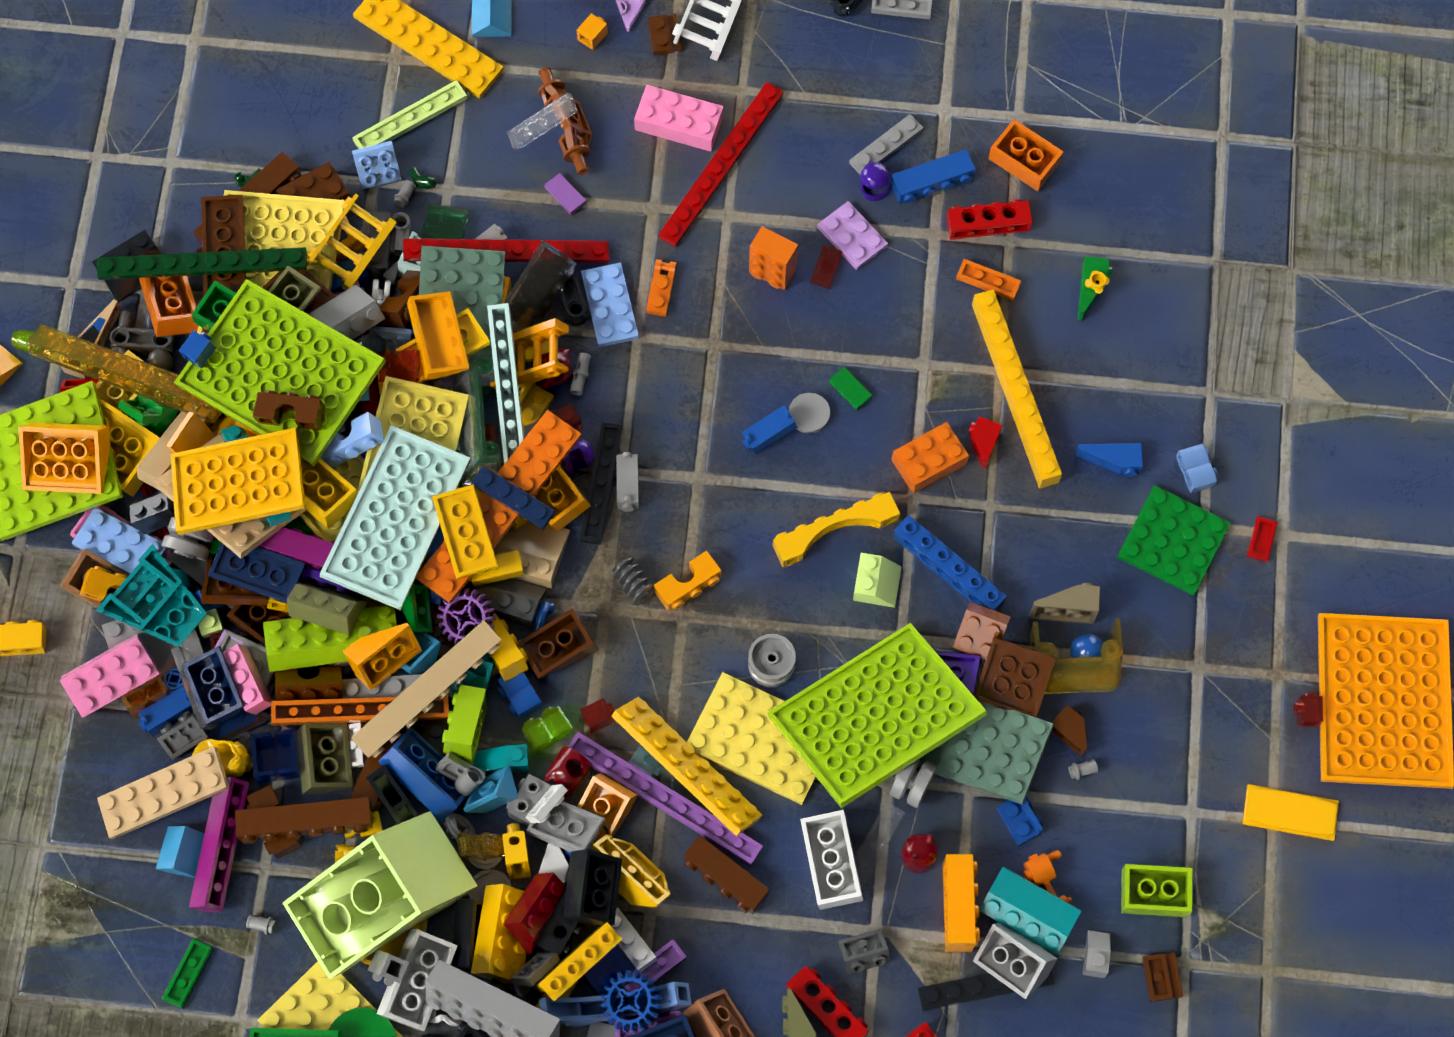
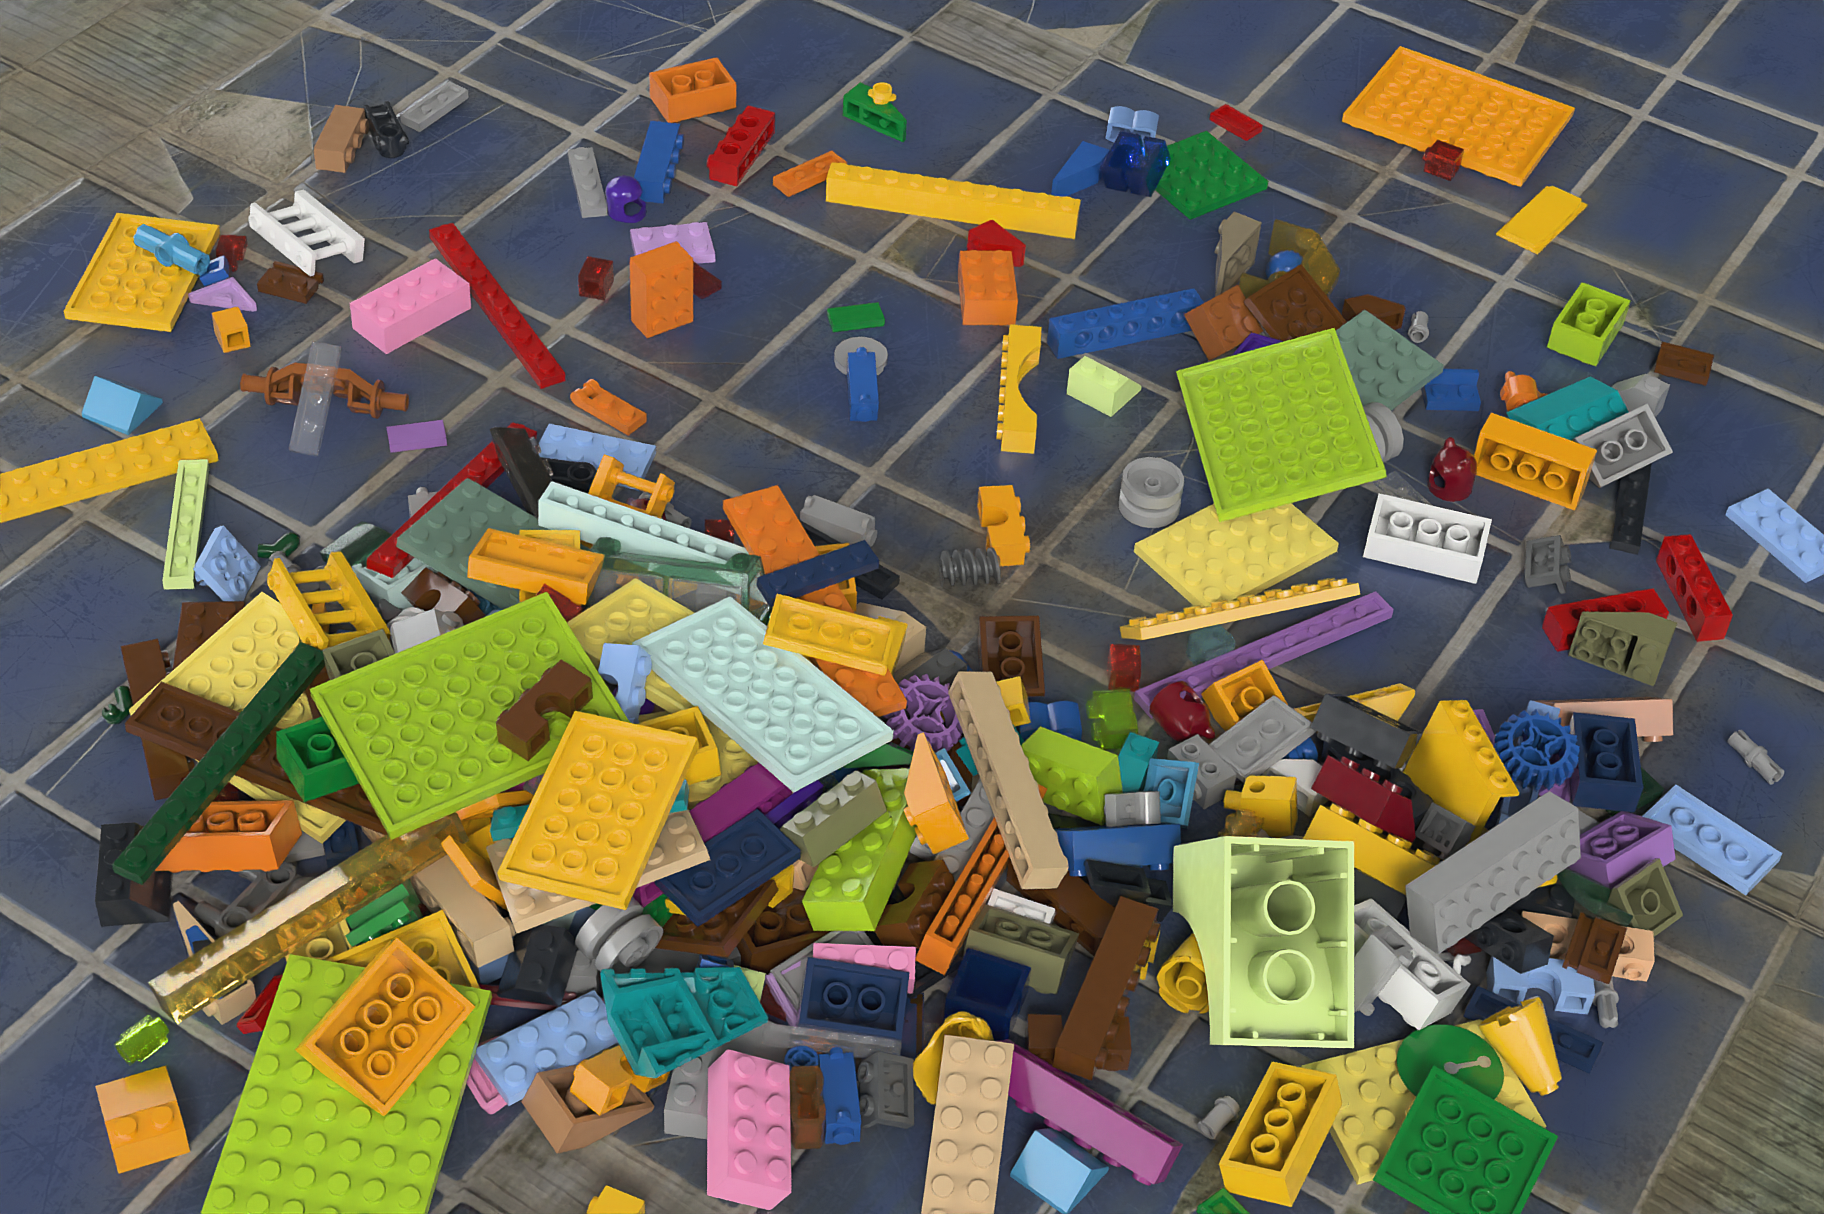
camera: 65 degrees left, 25 degrees down
(197, 348) = (370, 774): blue brick -> none
(254, 963) = (1281, 1134): none -> yellow brick
(551, 799) = (1225, 739): white plate -> none
(726, 875) = (1394, 637): reddish brown brick -> none
(781, 209) = (596, 278): none -> clear red brick
(1135, 490) = (1130, 166): none -> clear blue piece

